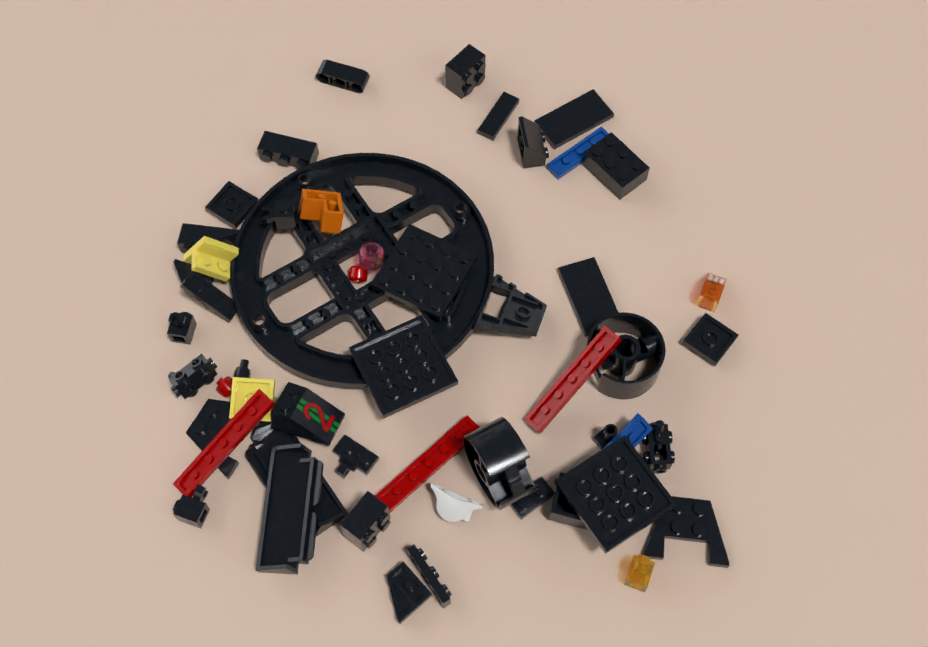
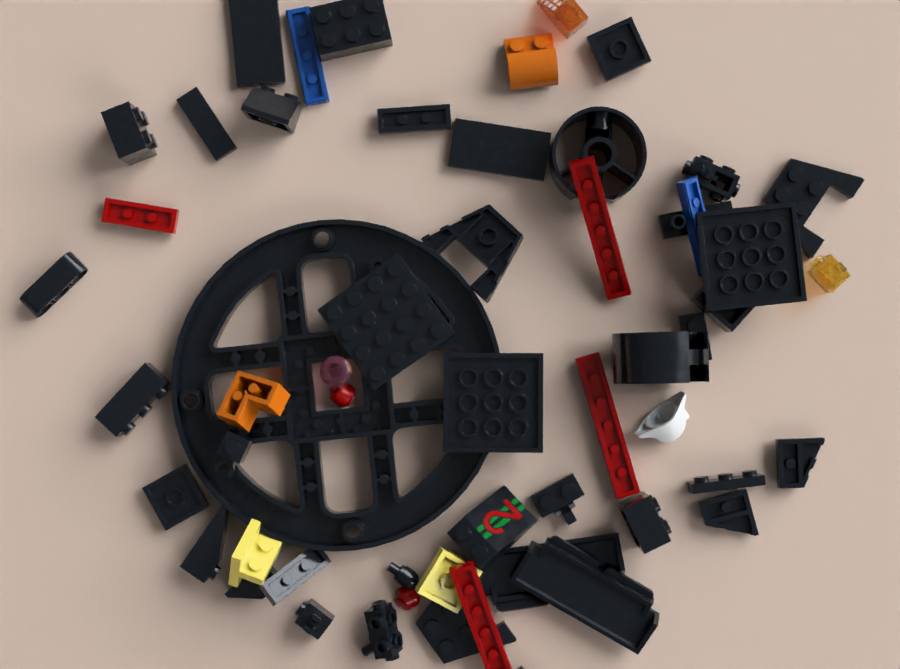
camera: 60 degrees left, 25 degrees up
(415, 104) = (140, 215): none -> red plate
(476, 624) = (795, 460): none -> black wing
(577, 232) = (414, 119): none -> black plate
(663, 285) = (531, 61): none -> orange brick

